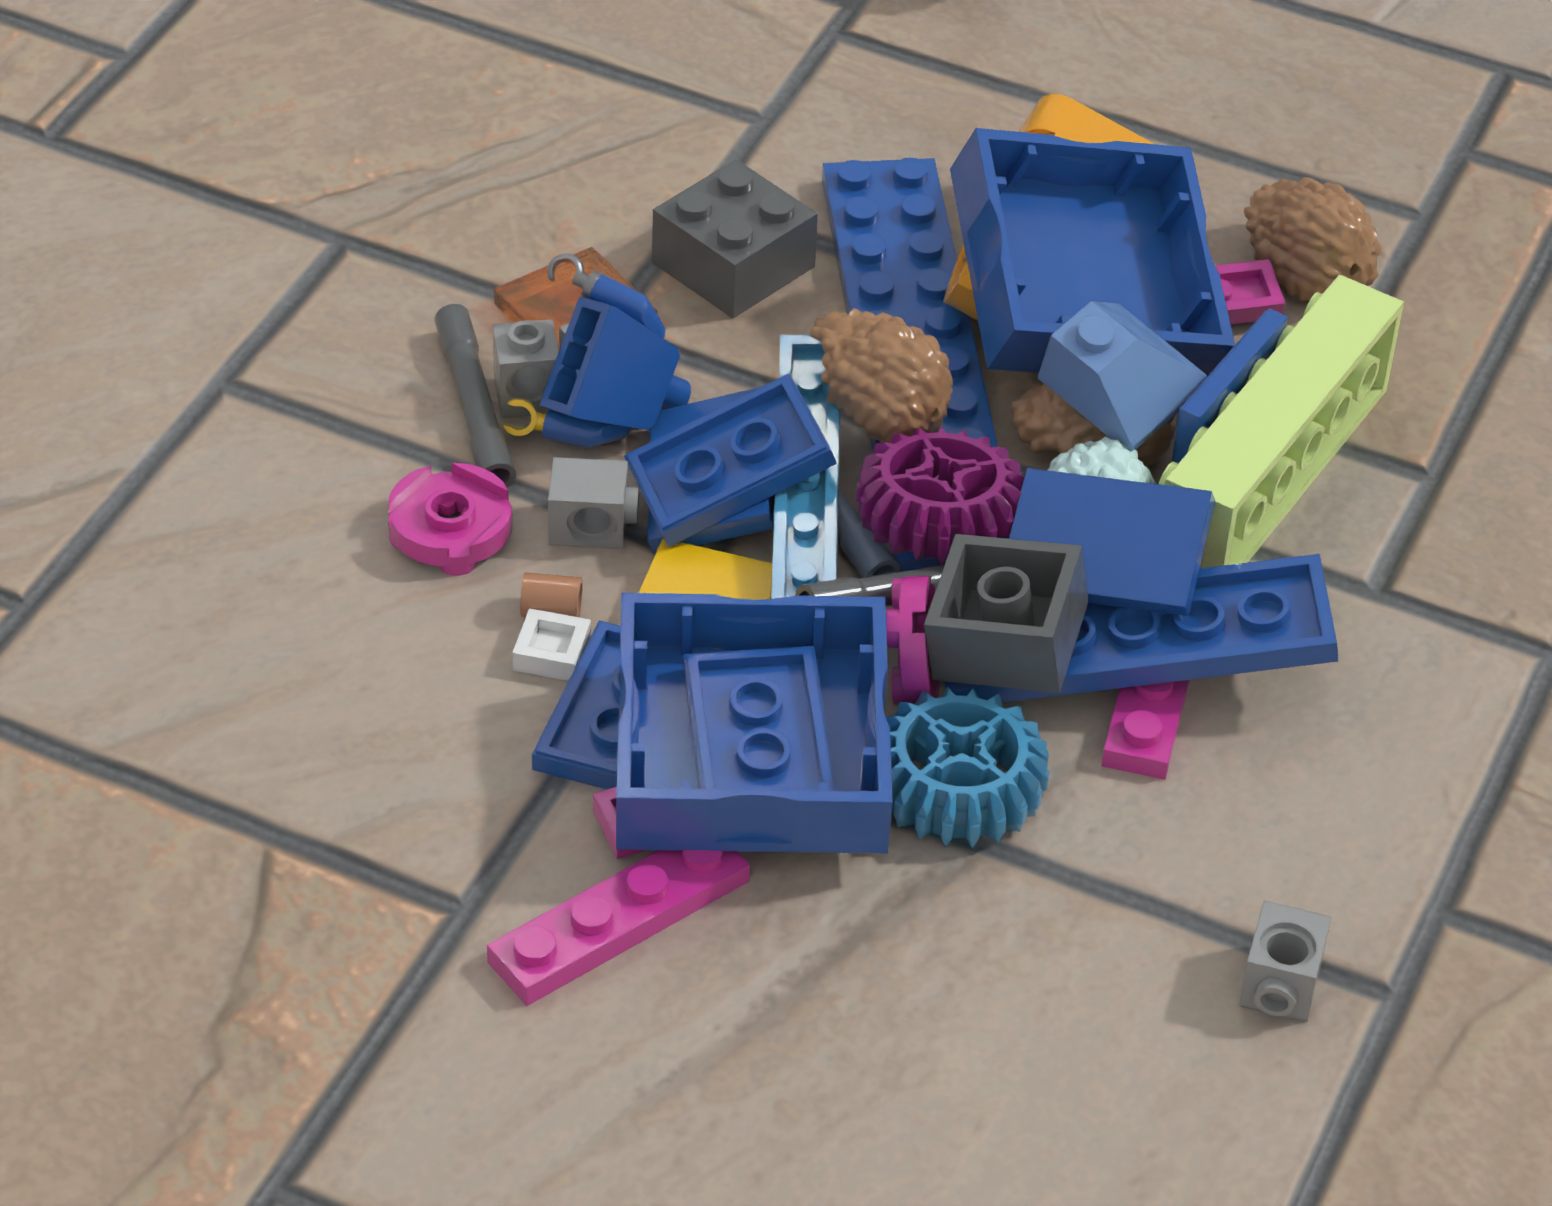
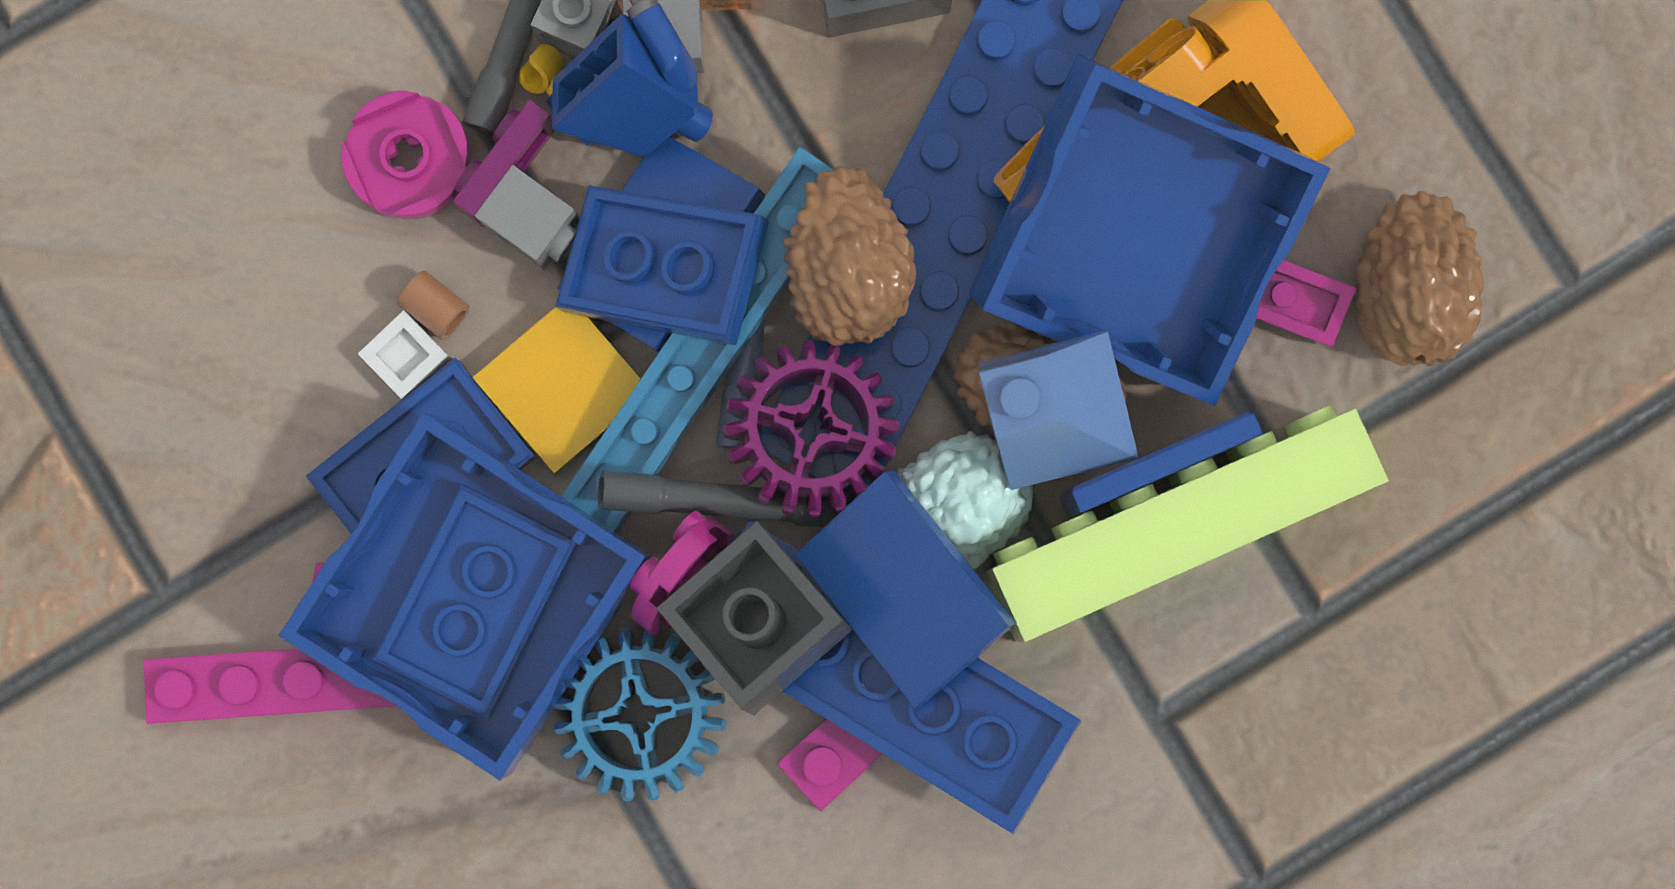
camera: 35 degrees right, 40 degrees up
(535, 463) = (518, 141): none -> magenta plate

